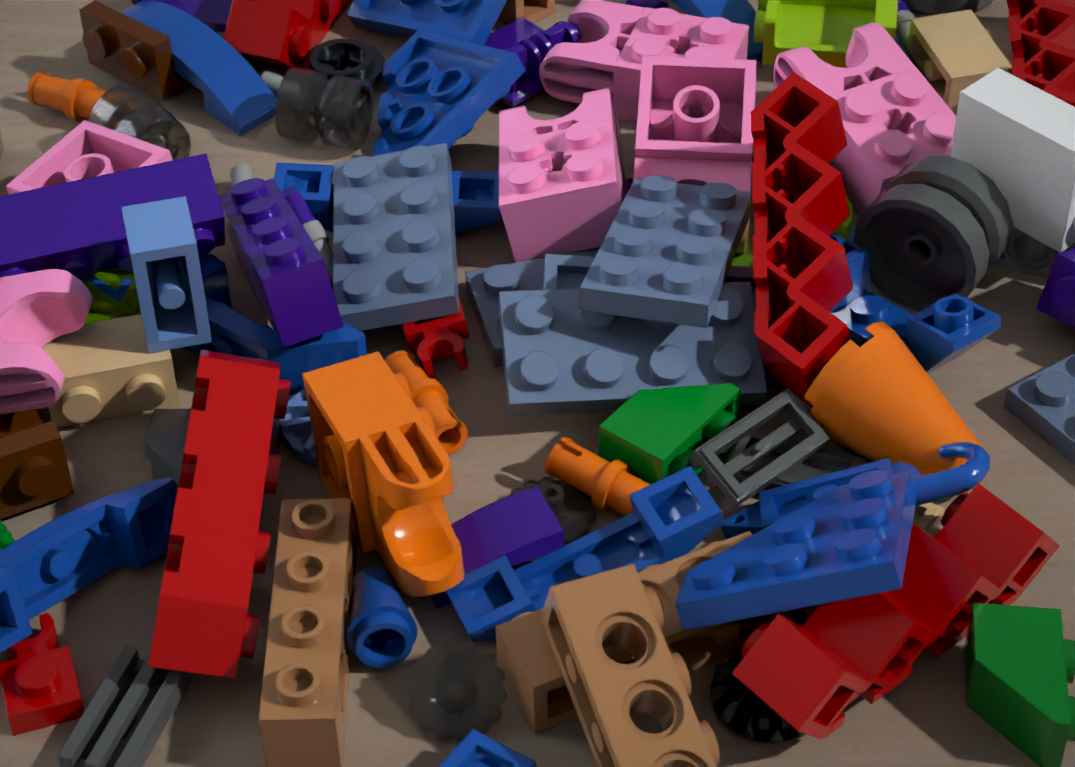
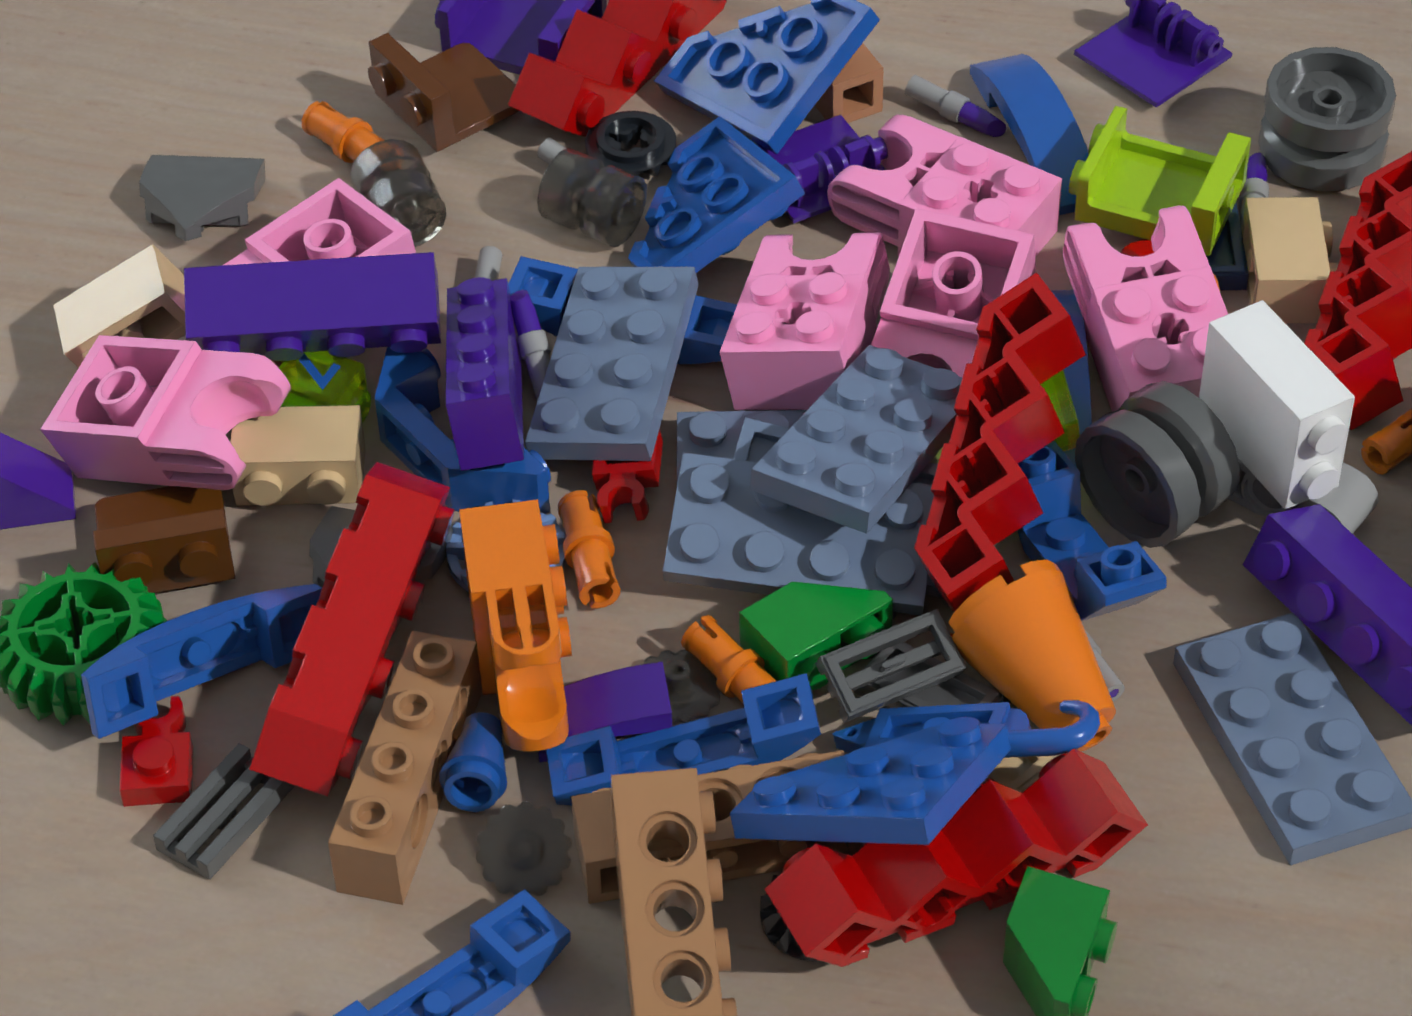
camera: 15 degrees right, 5 degrees up
(167, 274) = (362, 377): medium blue brick -> none
(200, 55) = (486, 118): blue slope -> none

